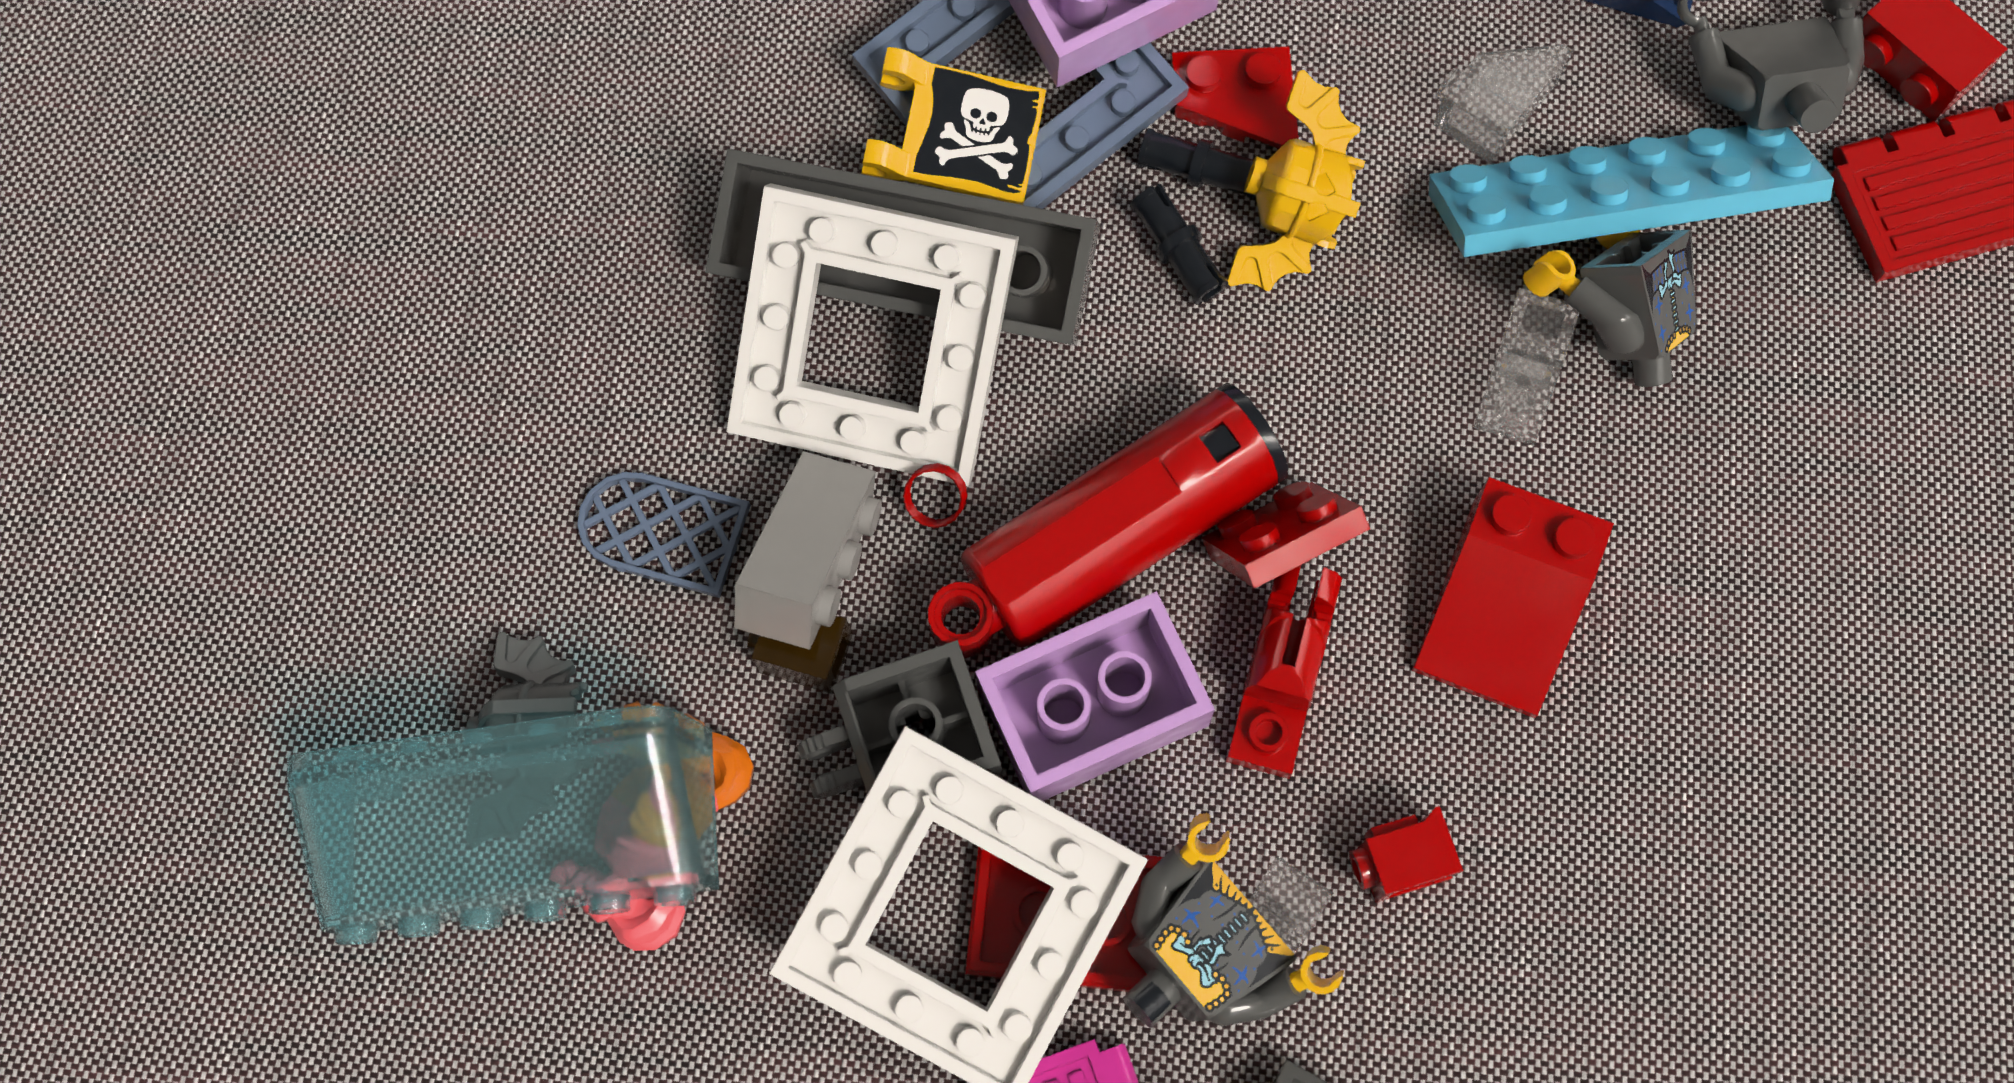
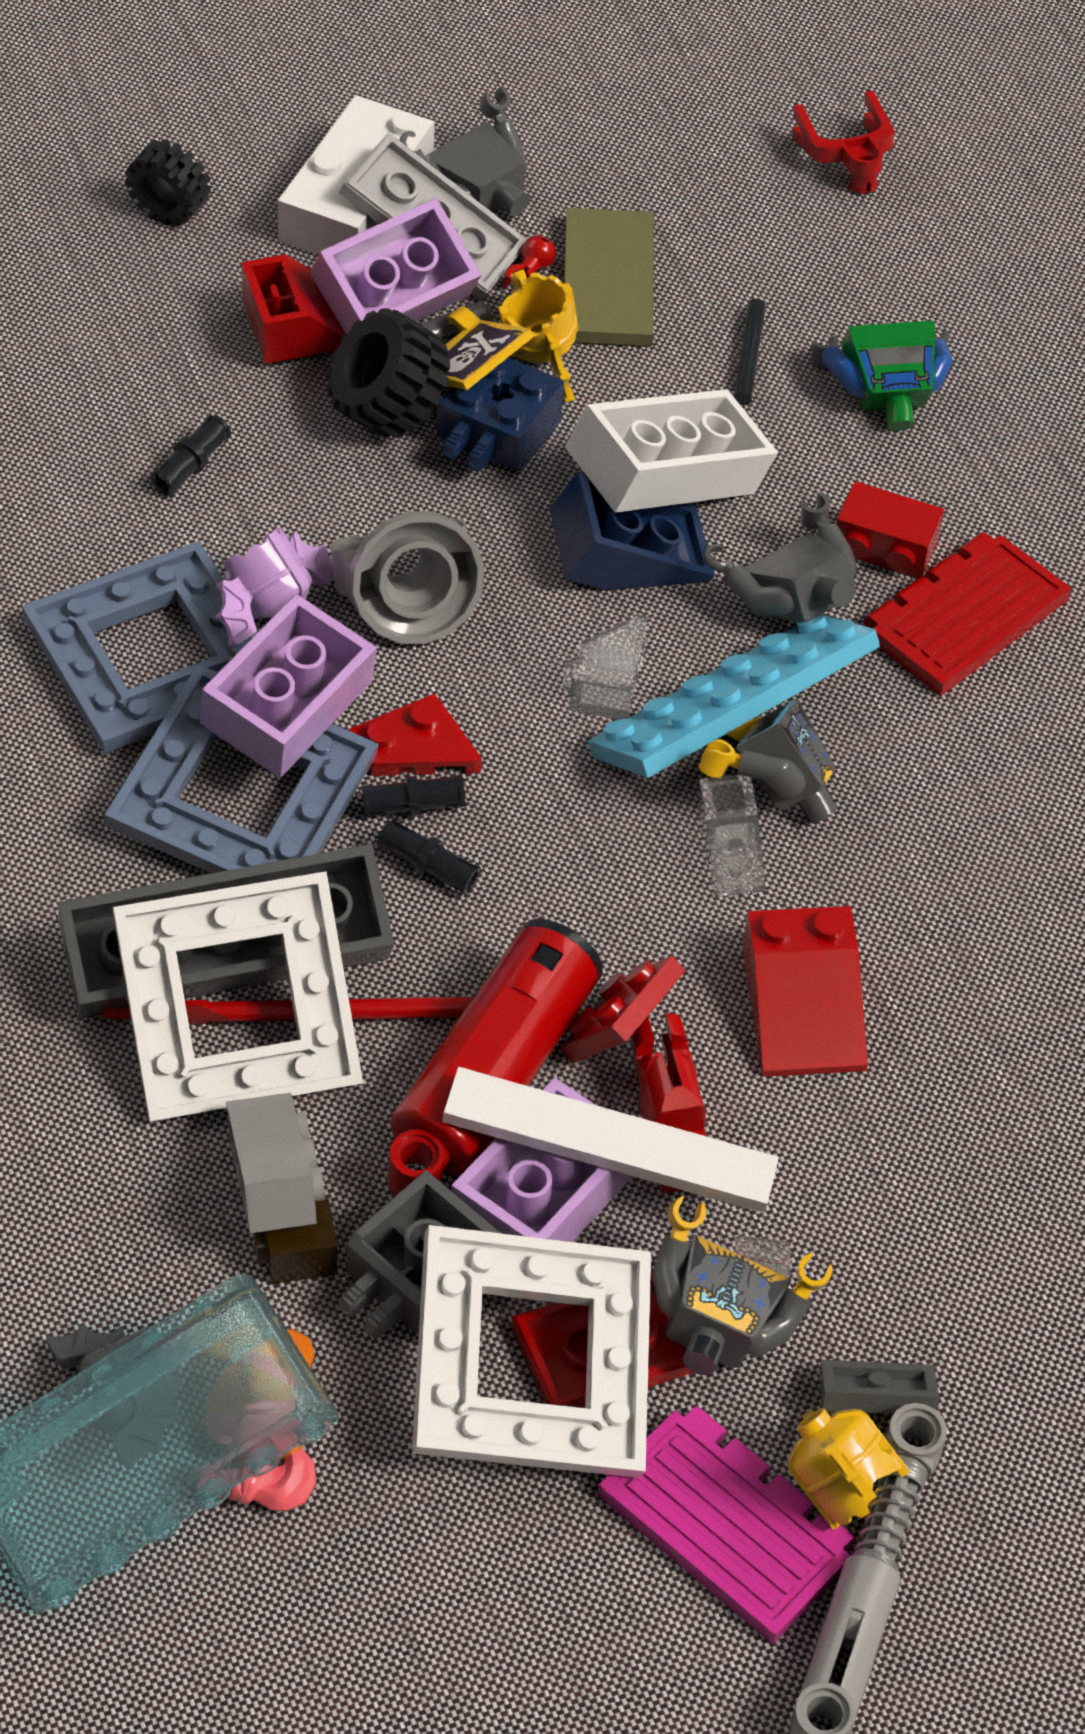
camera: 35 degrees left, 20 degrees down
(631, 566) = (118, 1184): sand blue window -> none
(918, 516) = (365, 1095): red axle -> none
(961, 130) = (217, 828): flag -> none
(1000, 390) = (282, 1010): none -> red piece
(1175, 704) = (610, 1139): none -> white tile
(1300, 188) = (502, 780): yellow helmet -> none
(1405, 856) = (829, 1190): red window -> none

